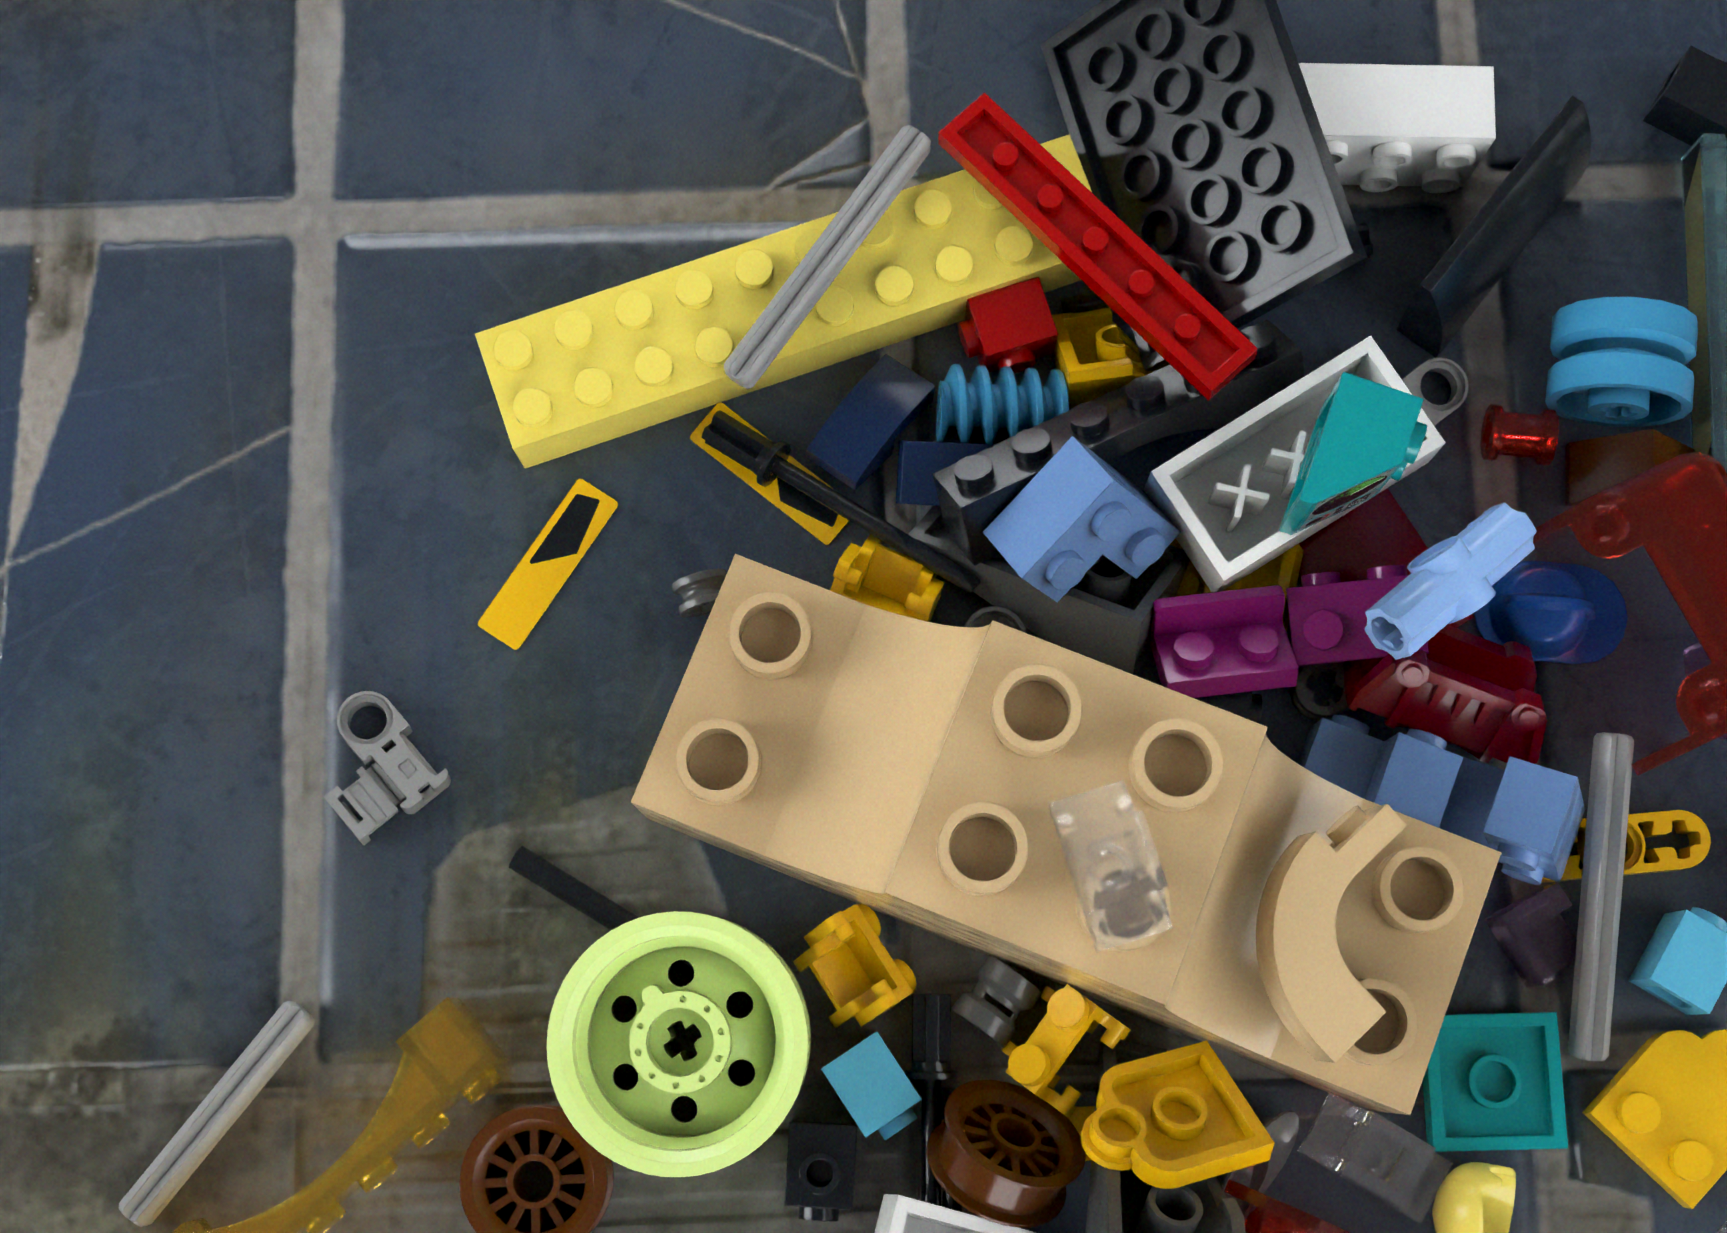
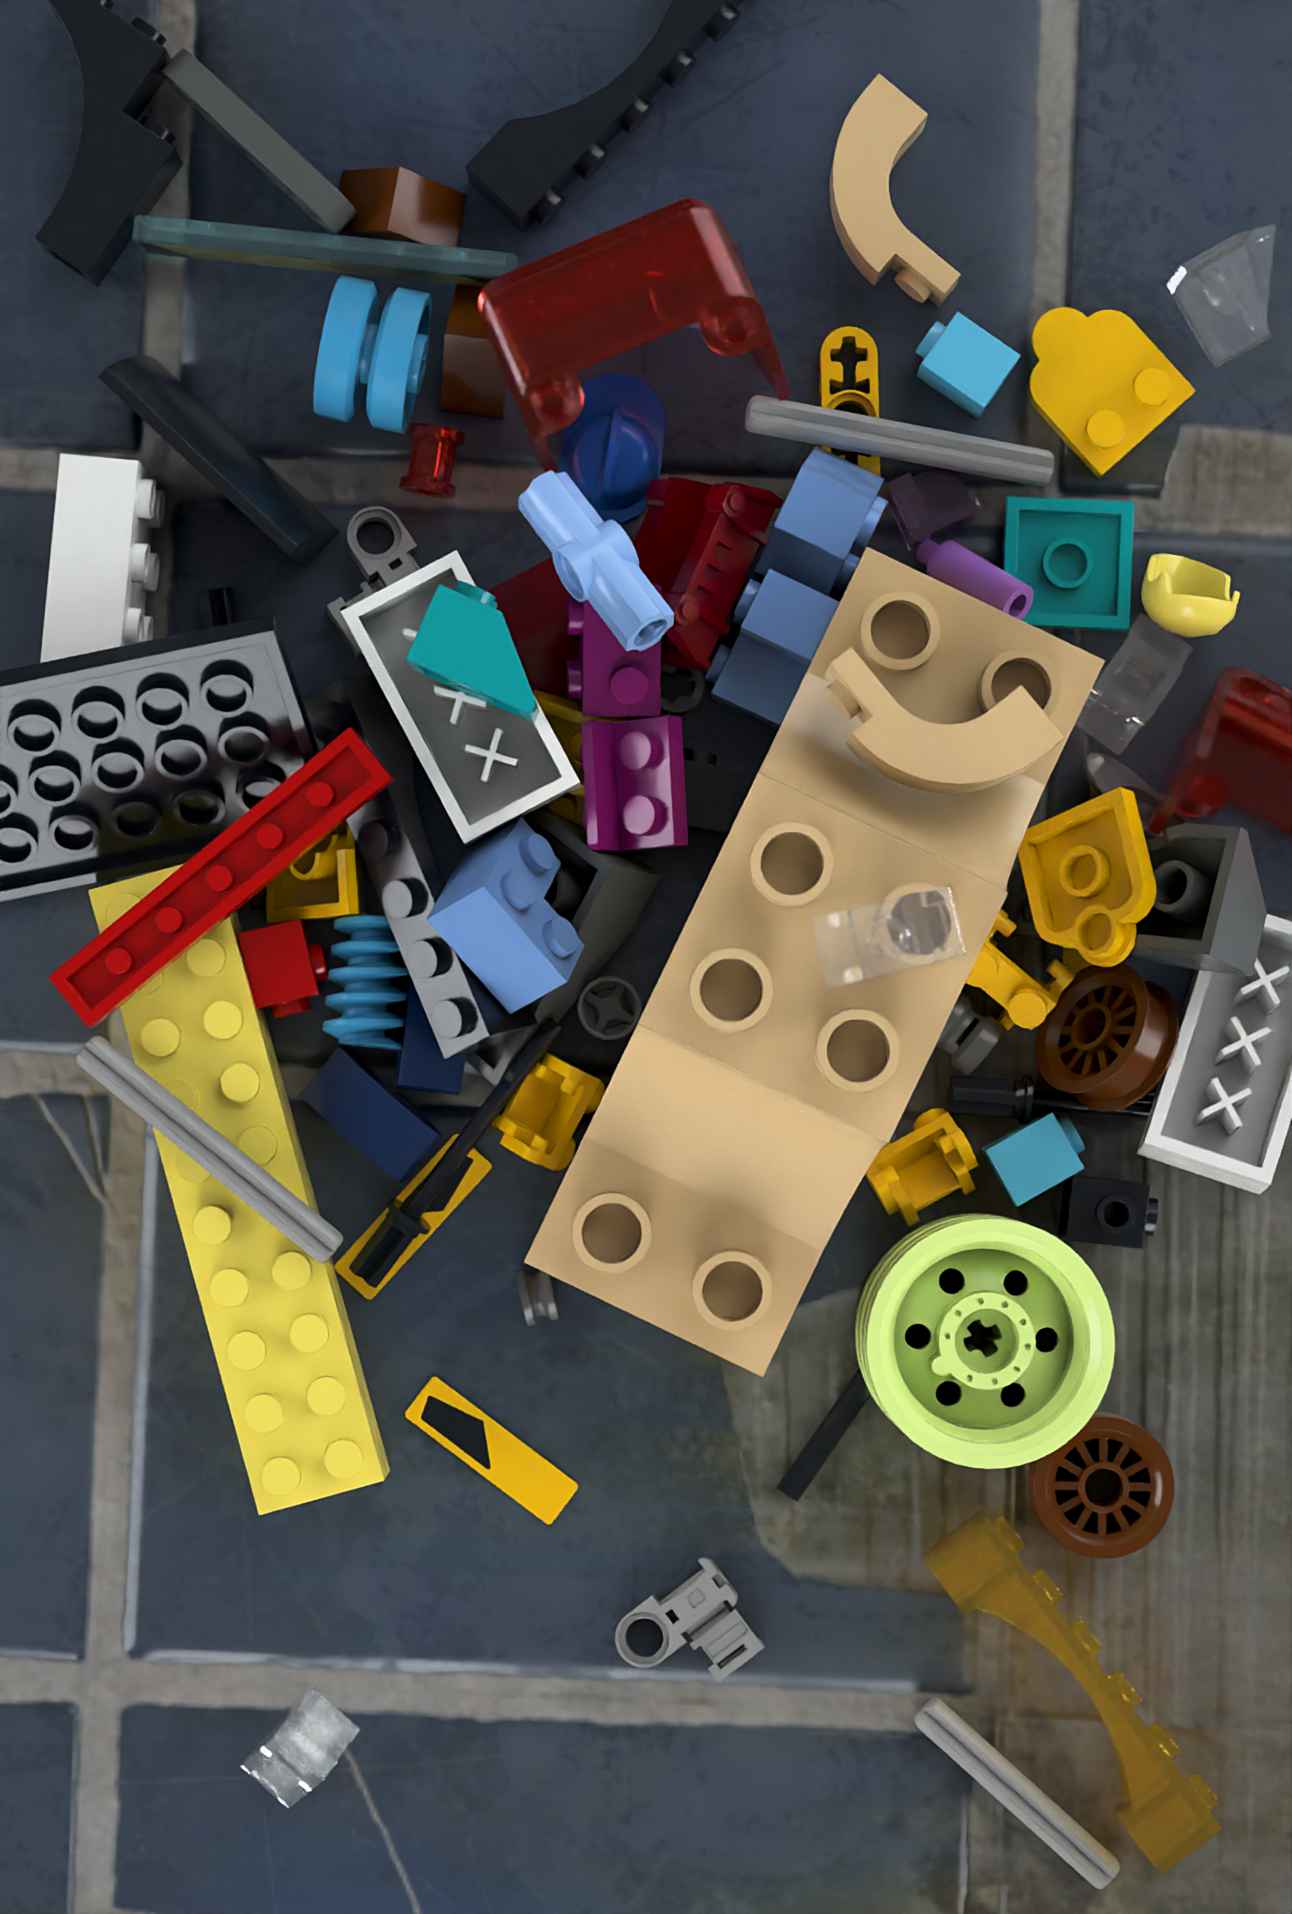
camera: 90 degrees left, 10 degrees up
(252, 394) = (301, 1748): none -> clear brick
(1472, 985) = (975, 577): none -> medium lavender cylinder

